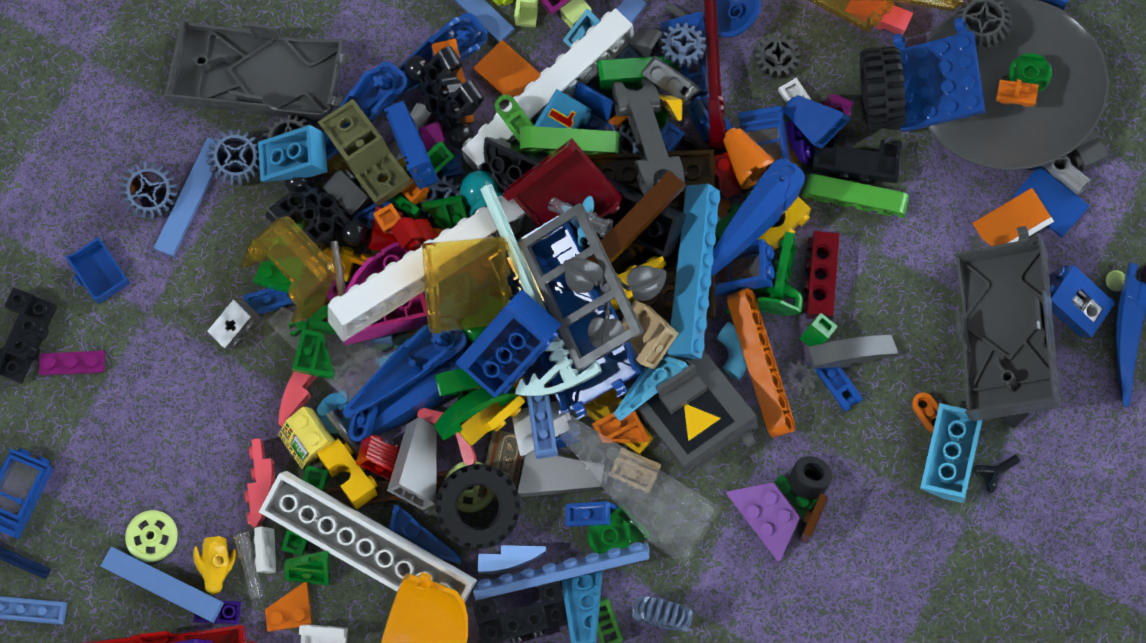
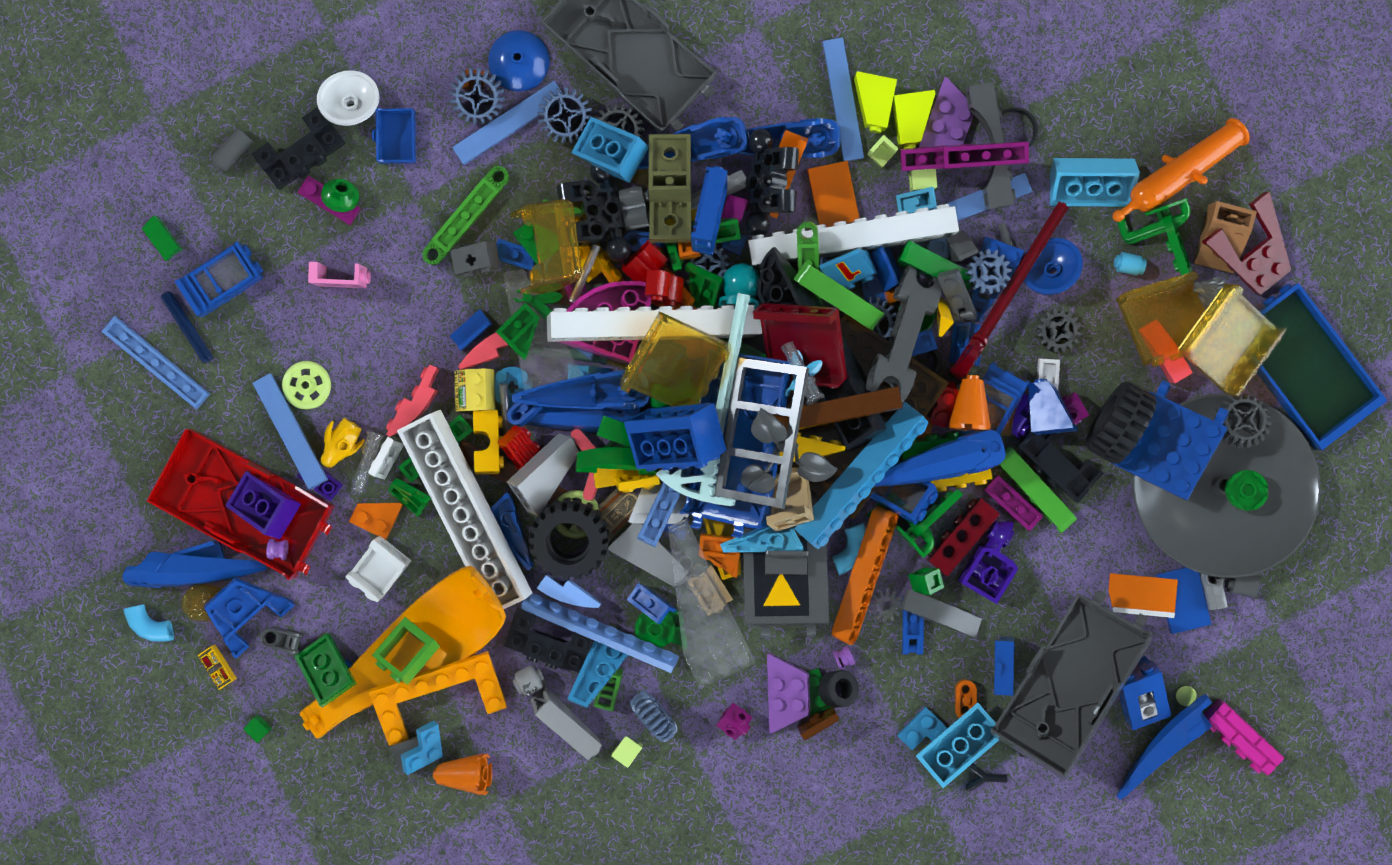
camera: 25 degrees right, 15 degrees up
(35, 264) = (346, 89): none -> white dish
(81, 352) = (338, 200): none -> green piece
(124, 423) = (318, 273): none -> bright pink panel
(174, 150) = (527, 71): none -> blue dish
(202, 296) = (465, 215): none -> bright green plate
(270, 389) = (471, 330): none -> blue panel
(386, 217) = (650, 260): orange tile -> none
(739, 571) = (734, 721): none -> magenta brick
(795, 448) = (845, 656): none -> medium lavender wheel
(845, 219) = (1013, 503): none -> magenta plate
(864, 283) = (988, 569): none -> dark purple brick
(909, 461) = (922, 725): none -> dark azure plate
(939, 356) = (1004, 666): none -> blue container
(1017, 93) = (1224, 502): orange hips -> none

